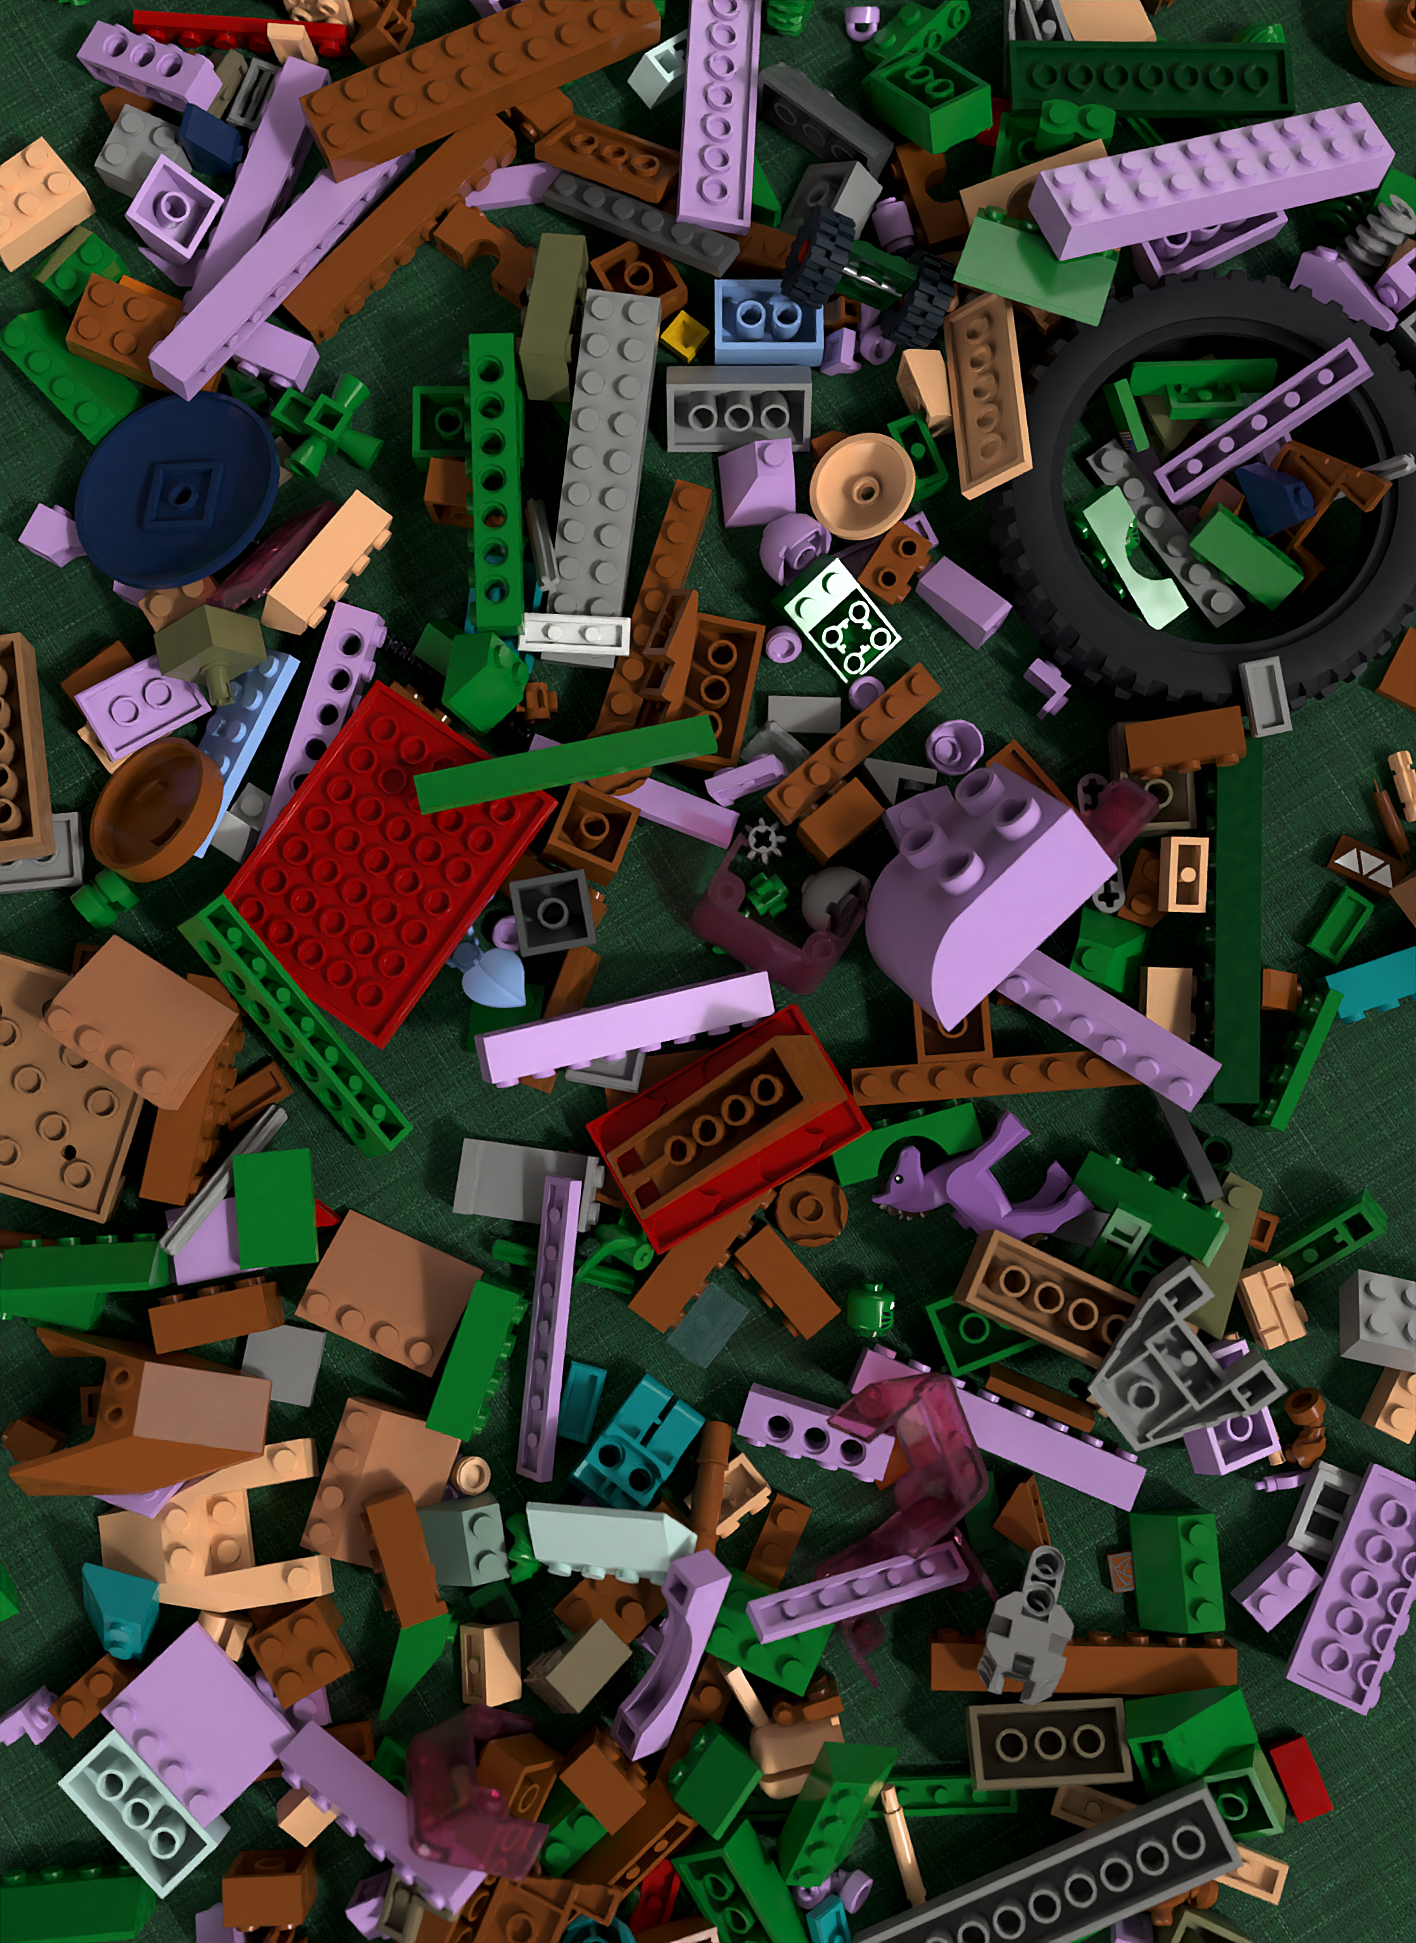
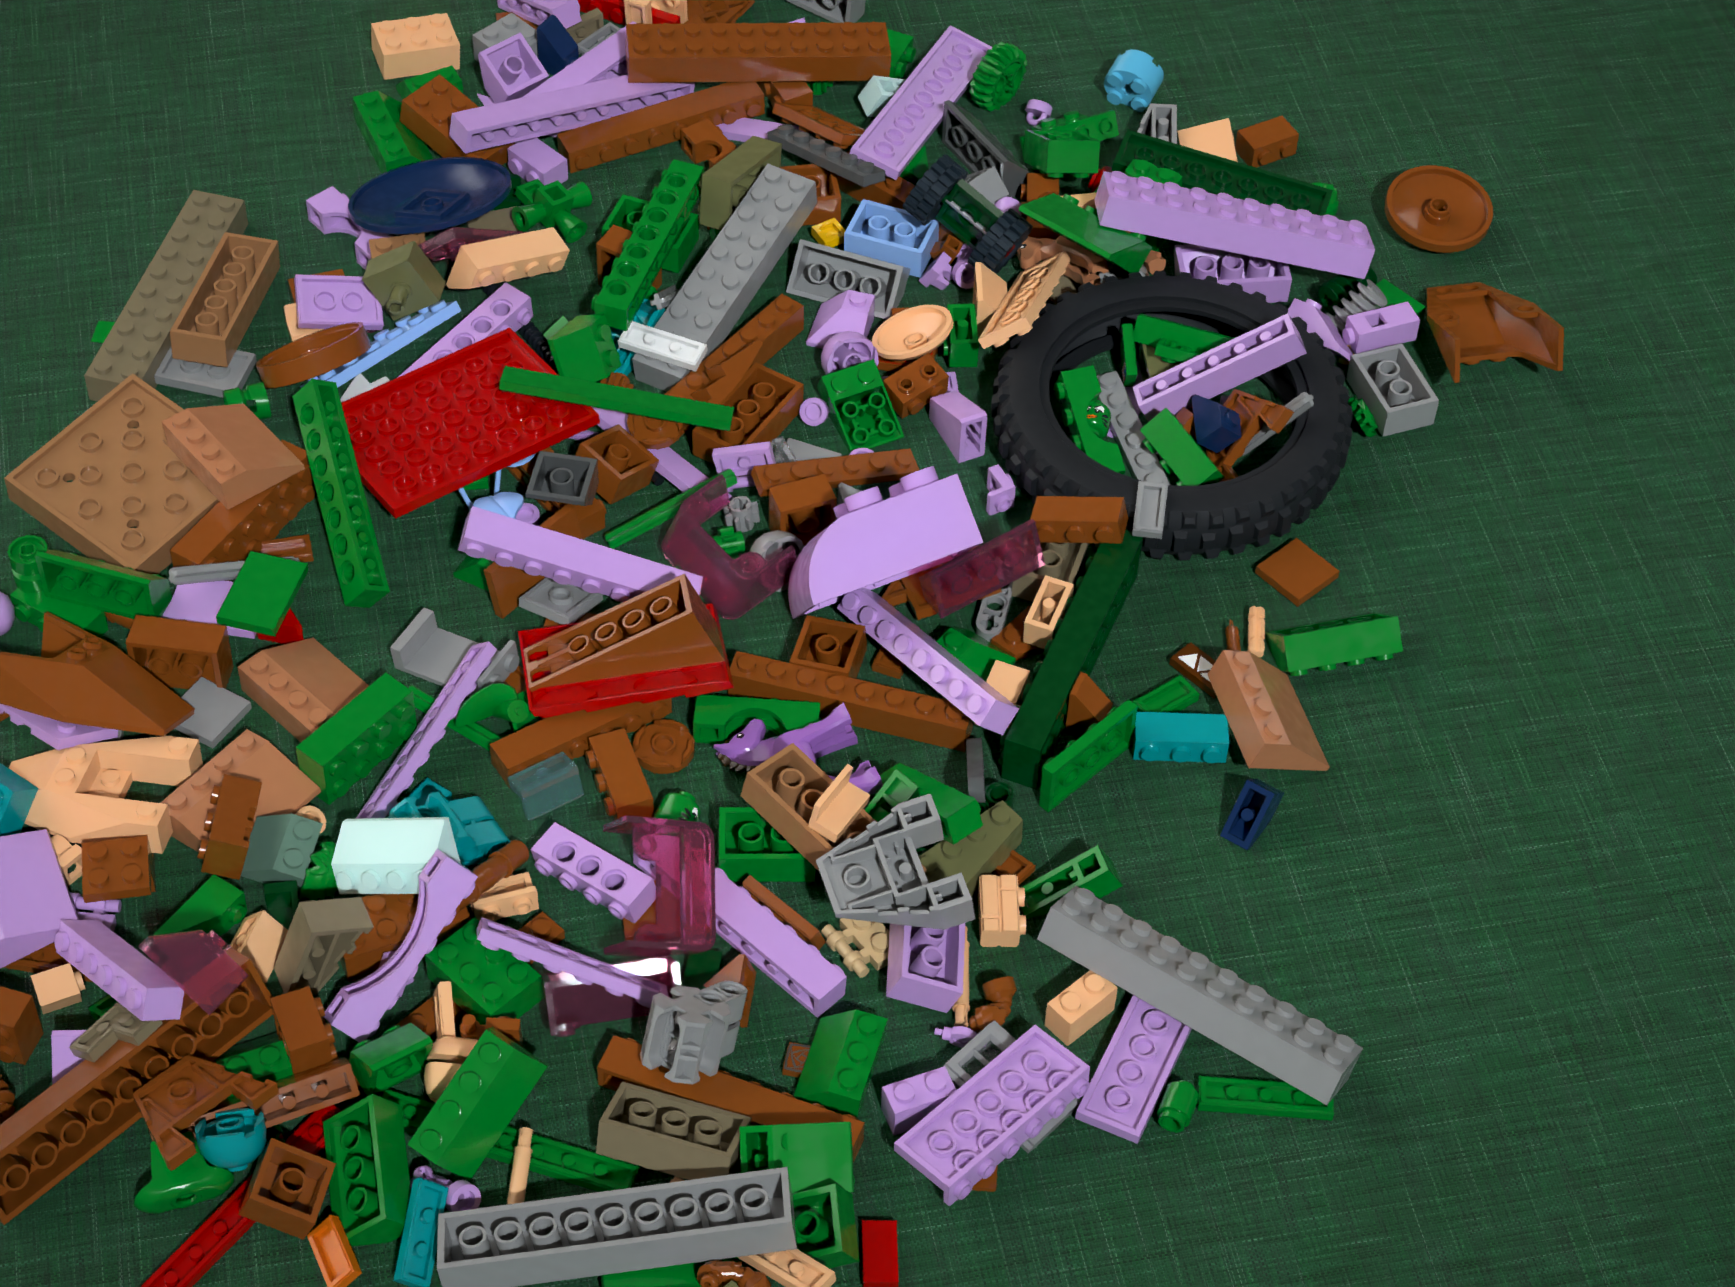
camera: 20 degrees right, 35 degrees down
(681, 869) = (658, 514): none -> green axle
(1084, 1304) = (838, 806): none -> light nougat panel

